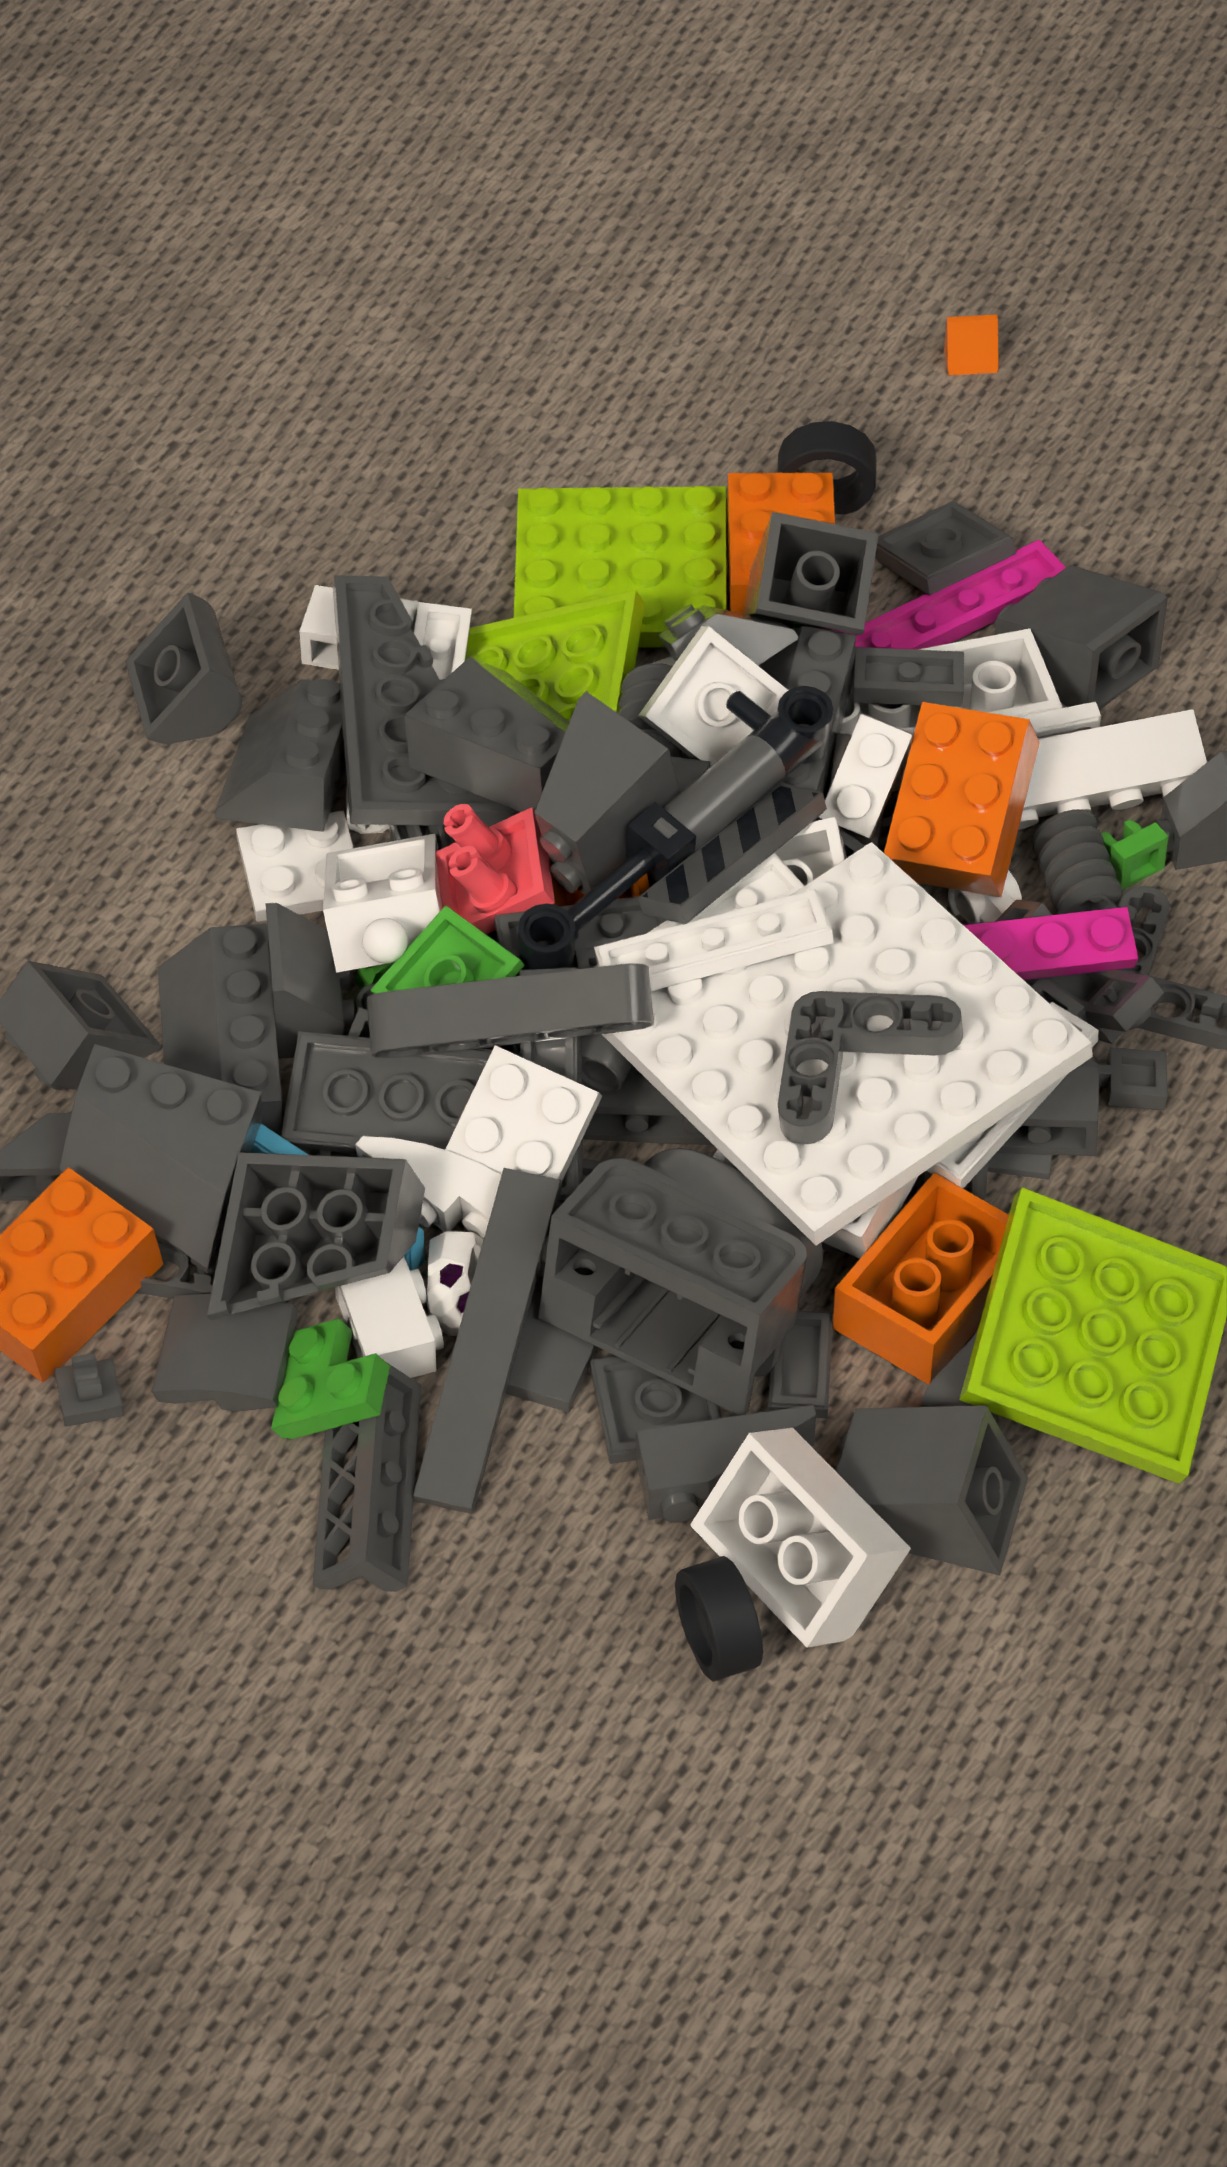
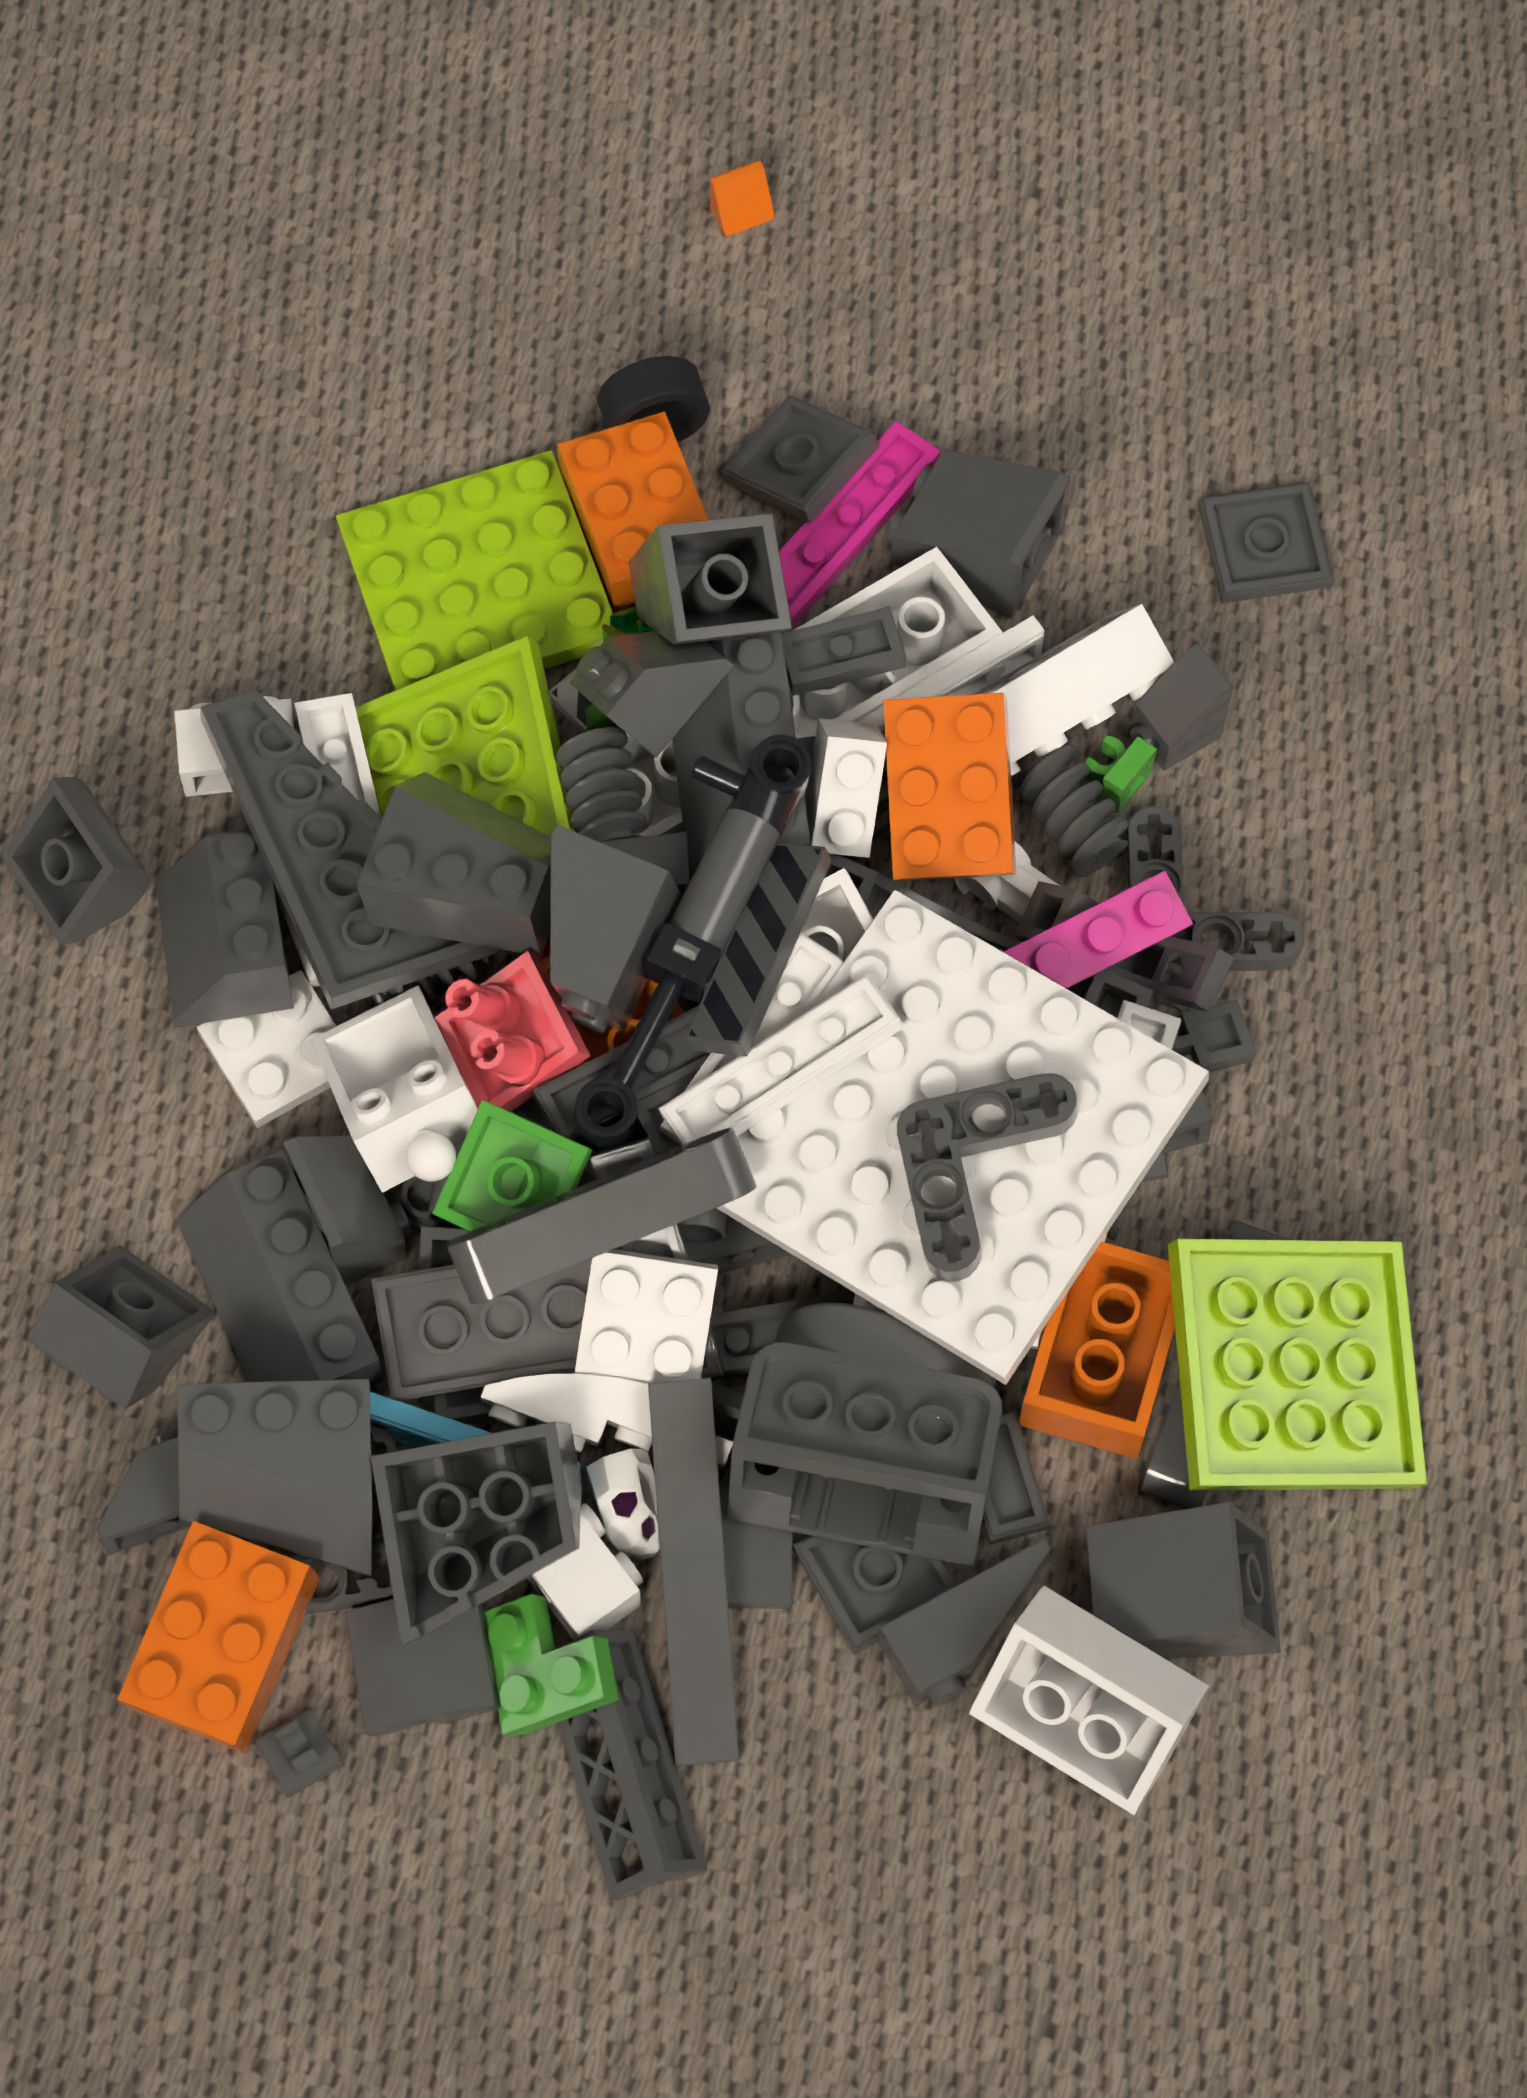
camera: 20 degrees left, 15 degrees up
(693, 697) = (655, 763): white plate -> none
(719, 1618) = (1039, 1816): black tyre -> none

